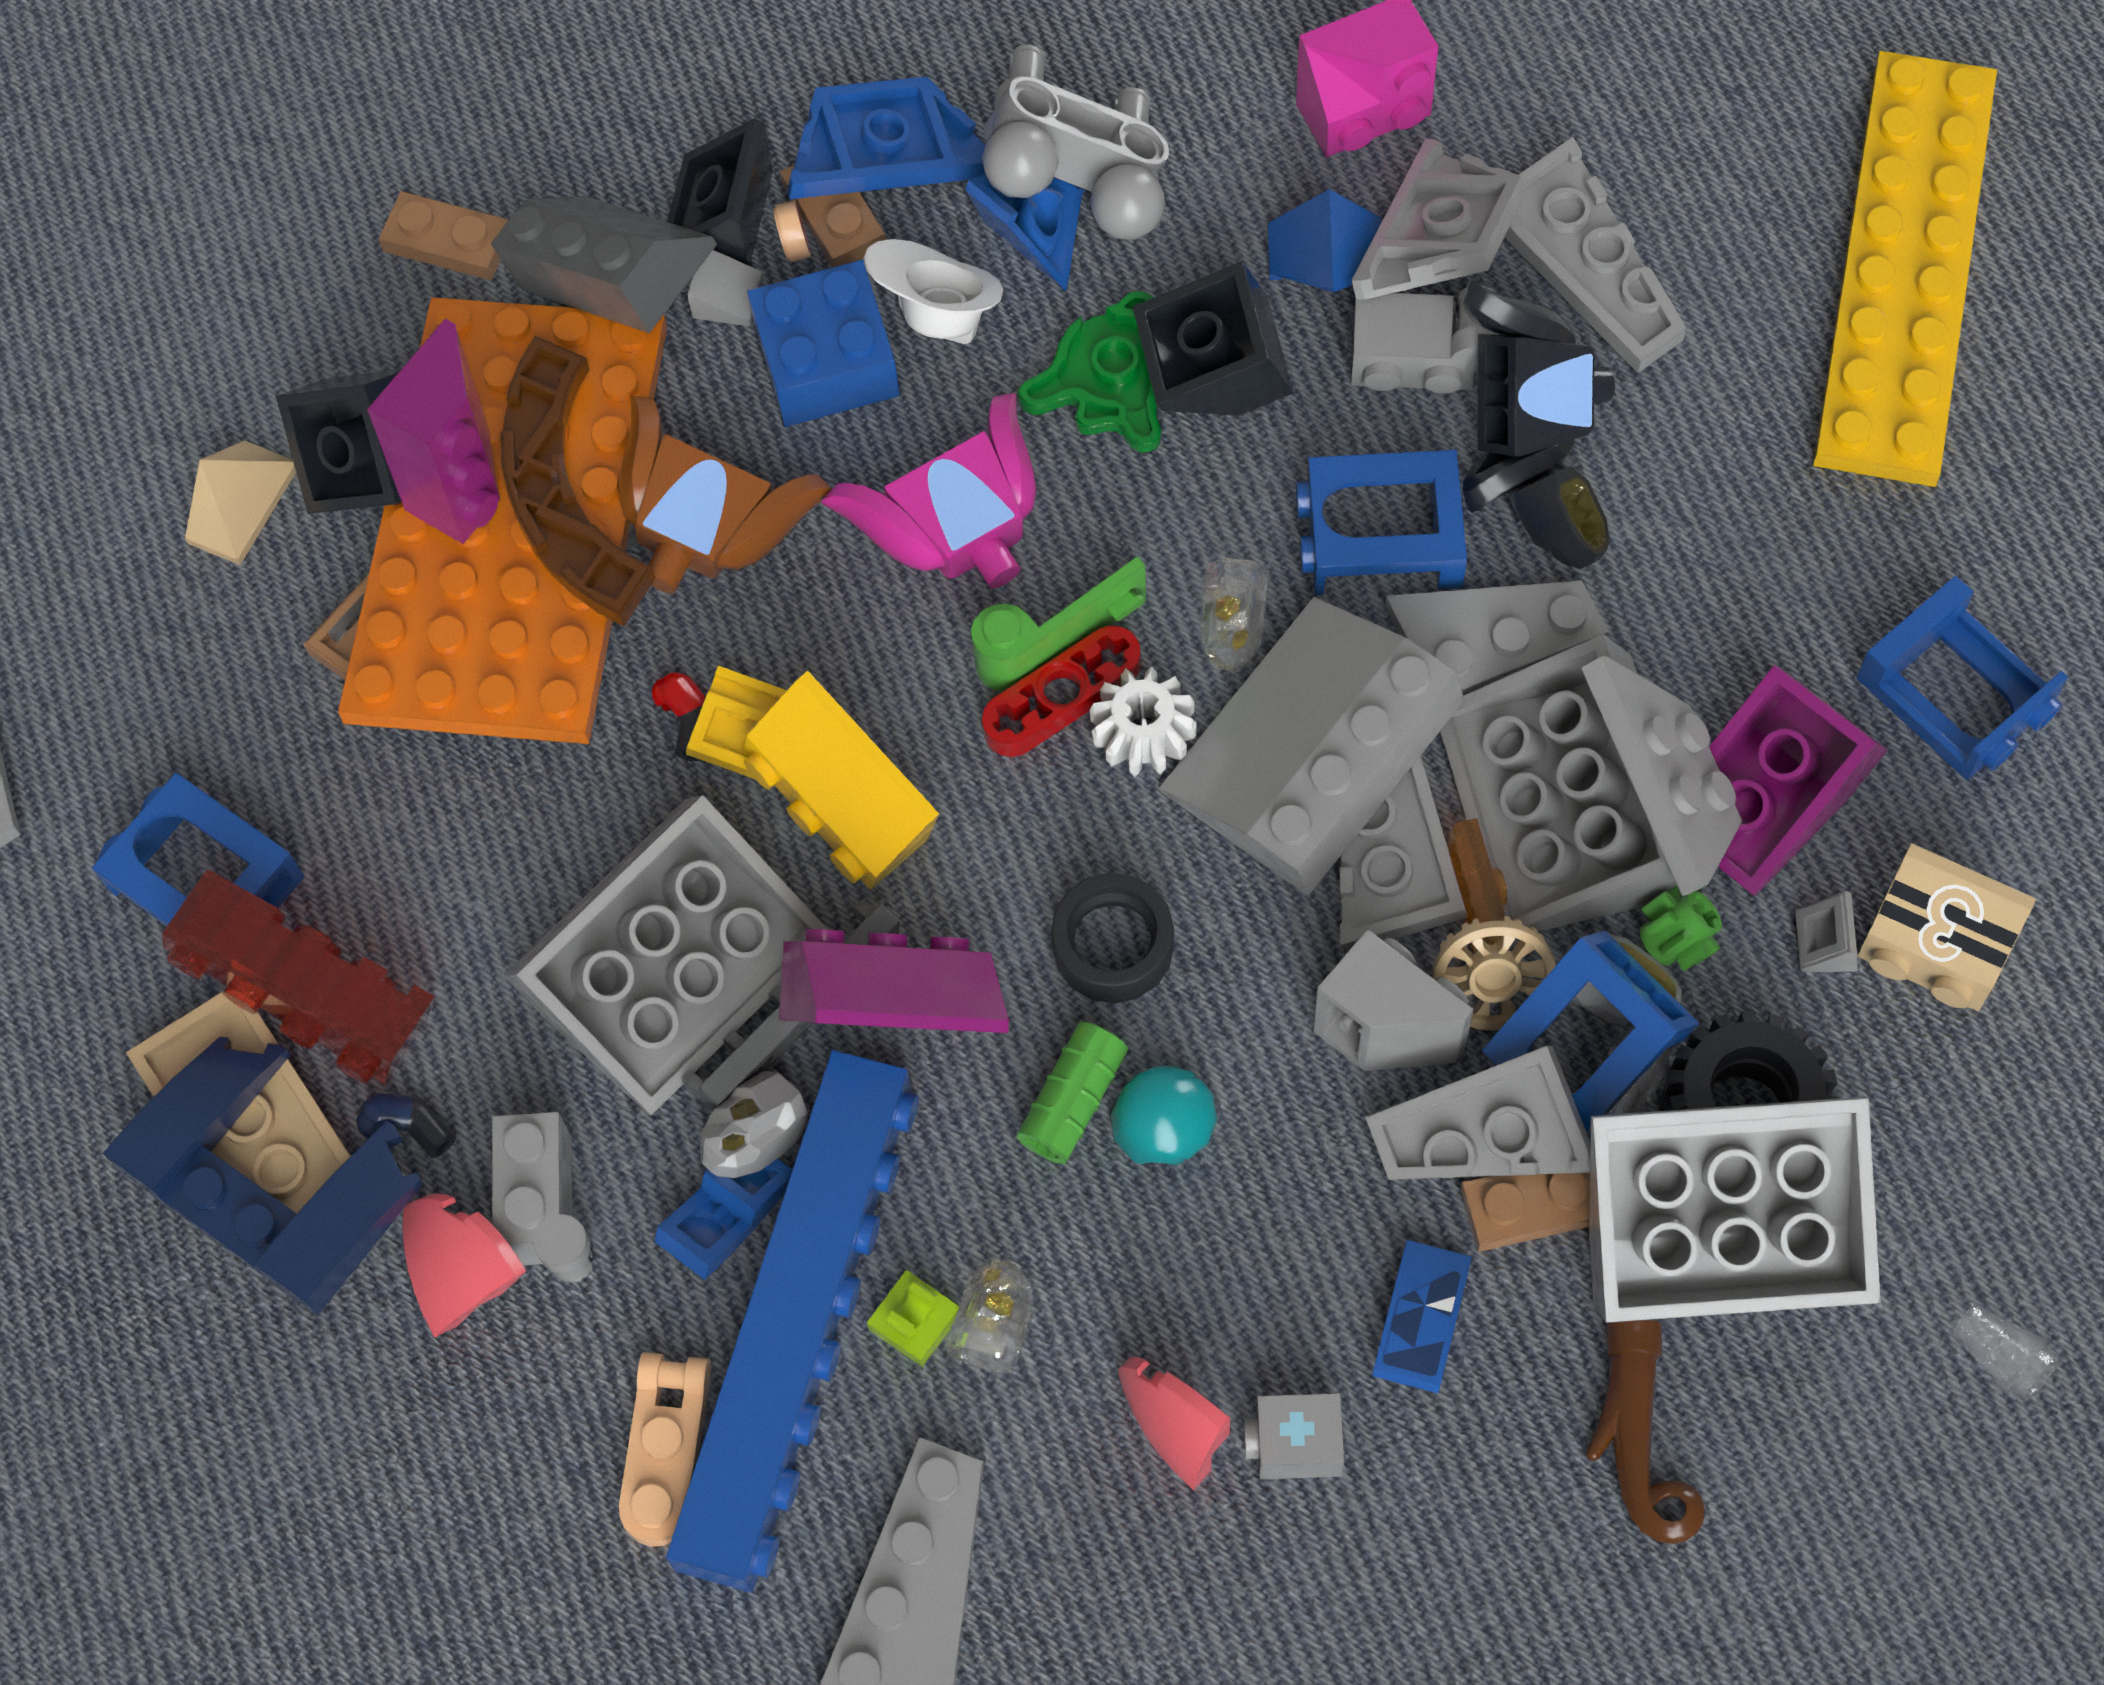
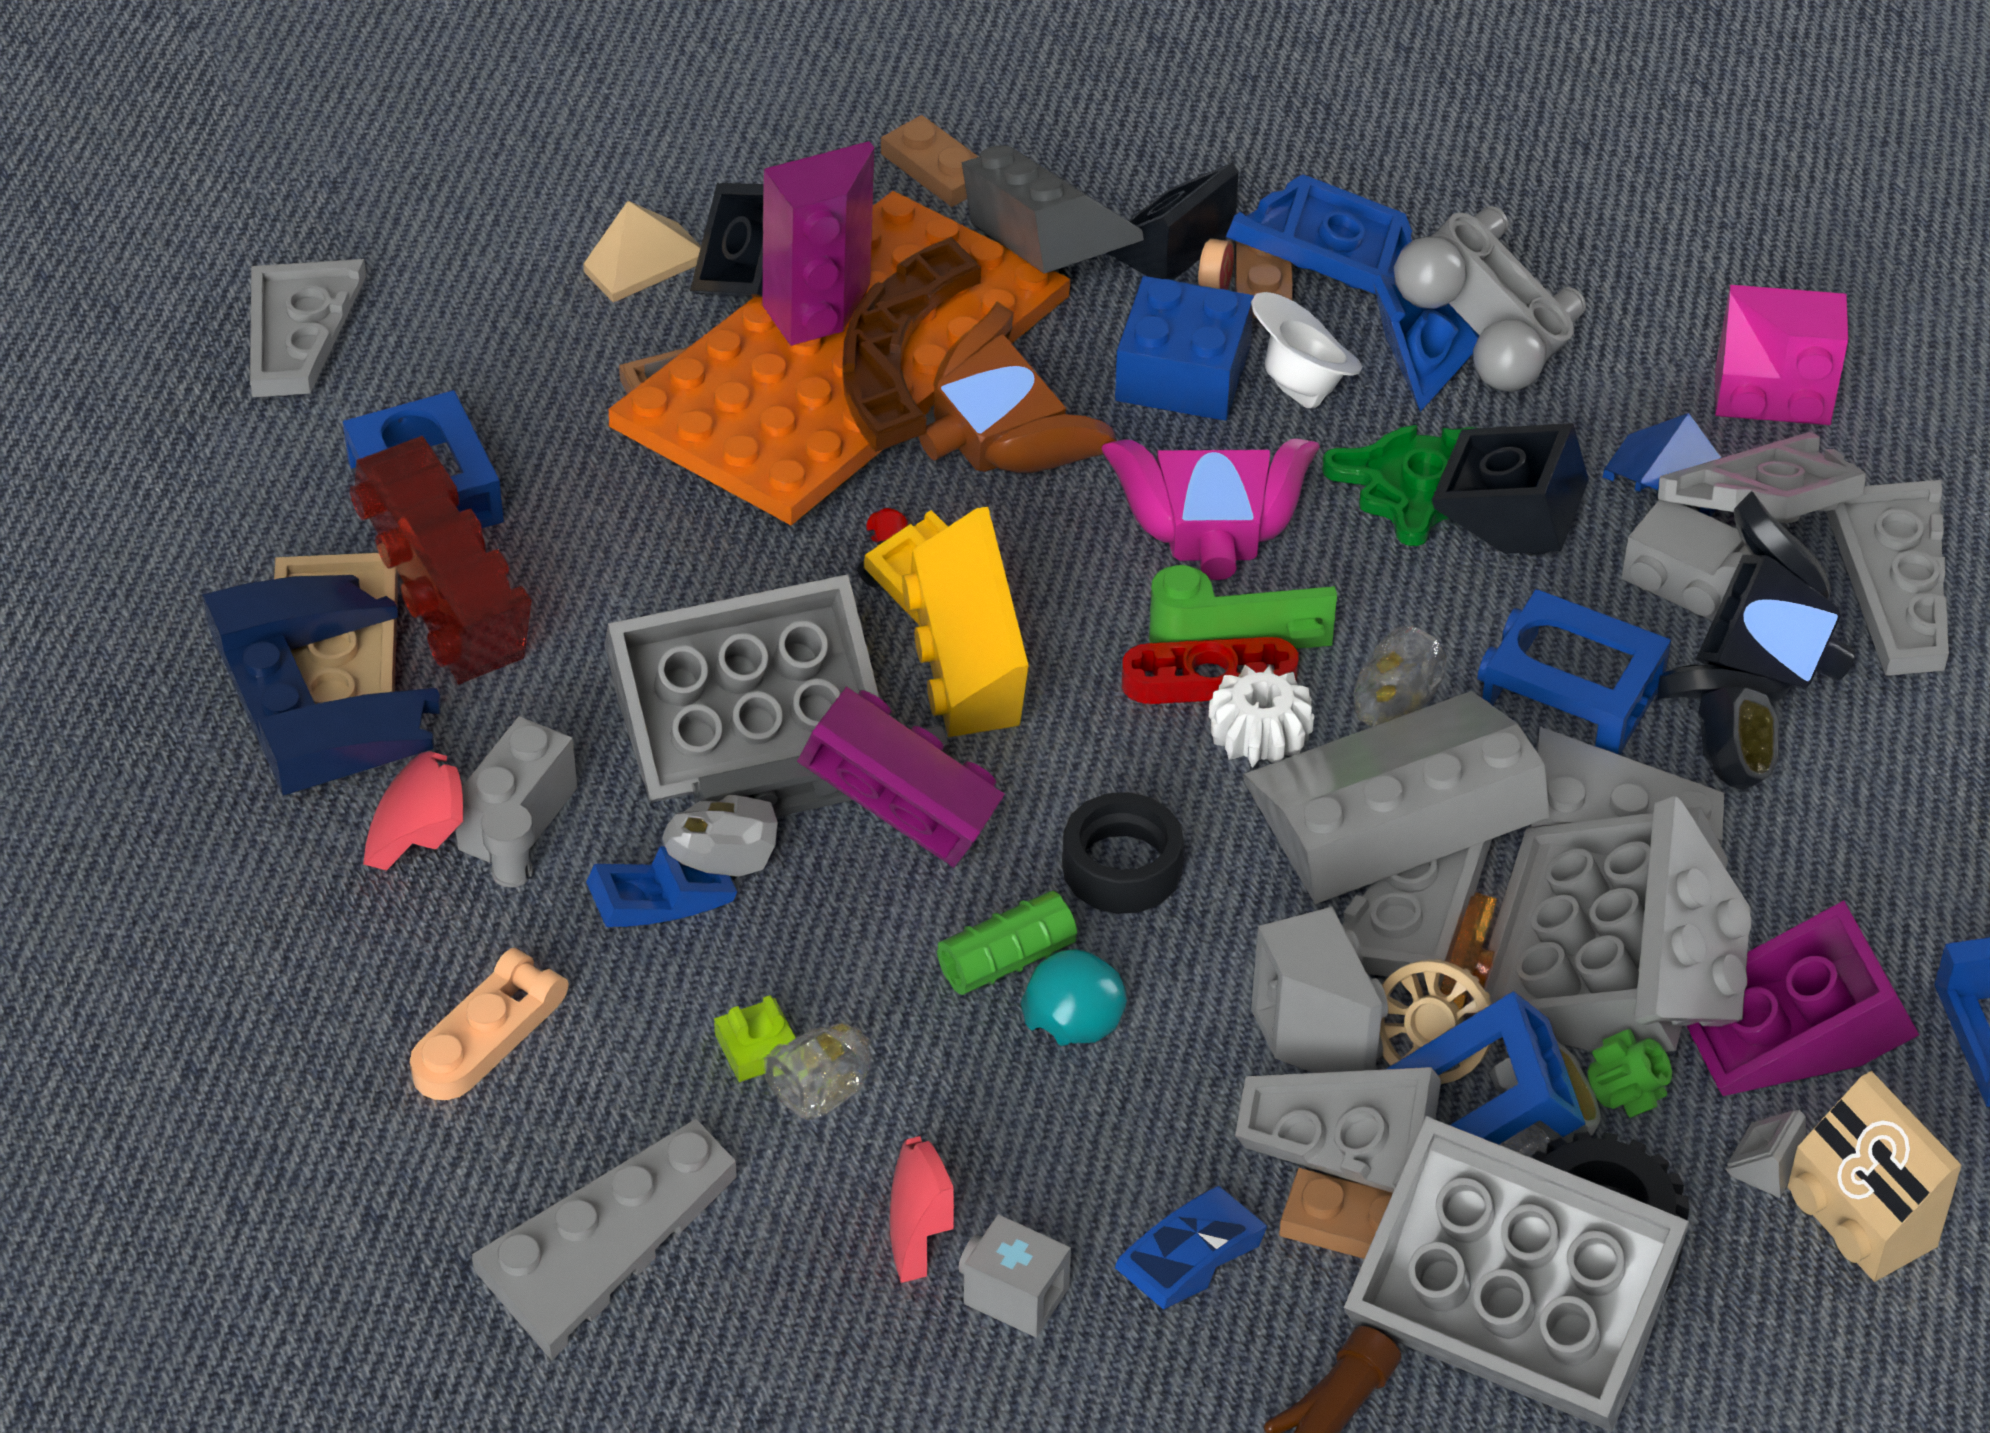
camera: 25 degrees right, 20 degrees down
(408, 1115) = (461, 709): arm -> none
(721, 289) = (1120, 277): light grey slope -> none
(792, 1323) = (650, 986): blue brick -> none

